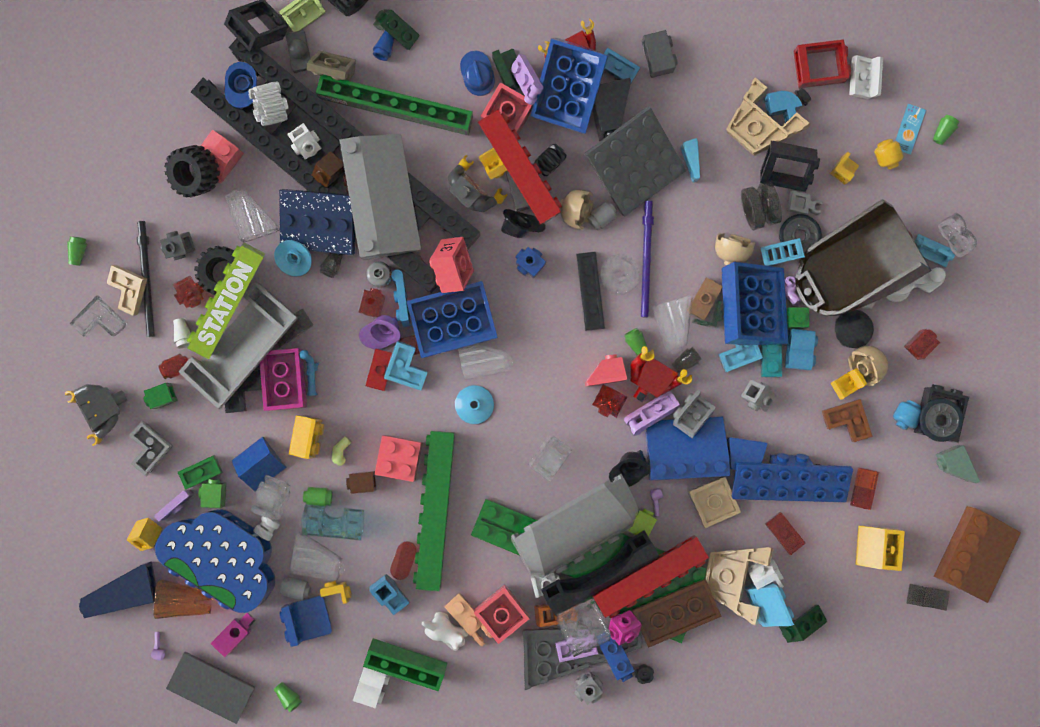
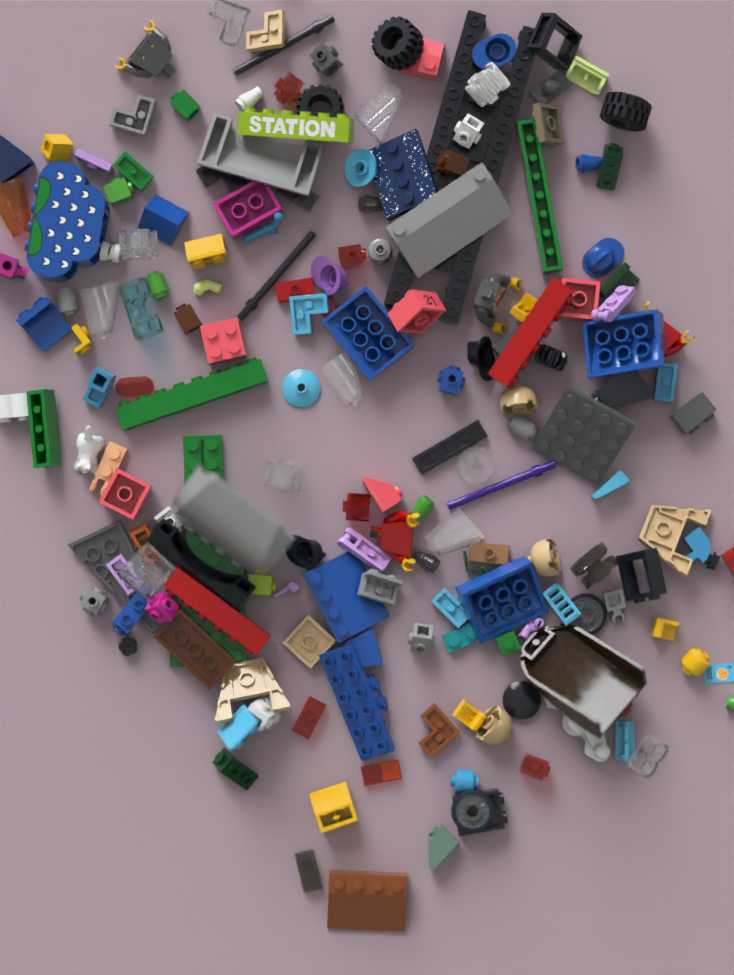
camera: 65 degrees right, 0 degrees up
(171, 366) = (216, 104): clear red brick -> none
(375, 415) = (252, 303): none -> black bar
(400, 297) = (367, 280): dark azure plate -> none
(800, 349) = (481, 659): dark azure brick -> none

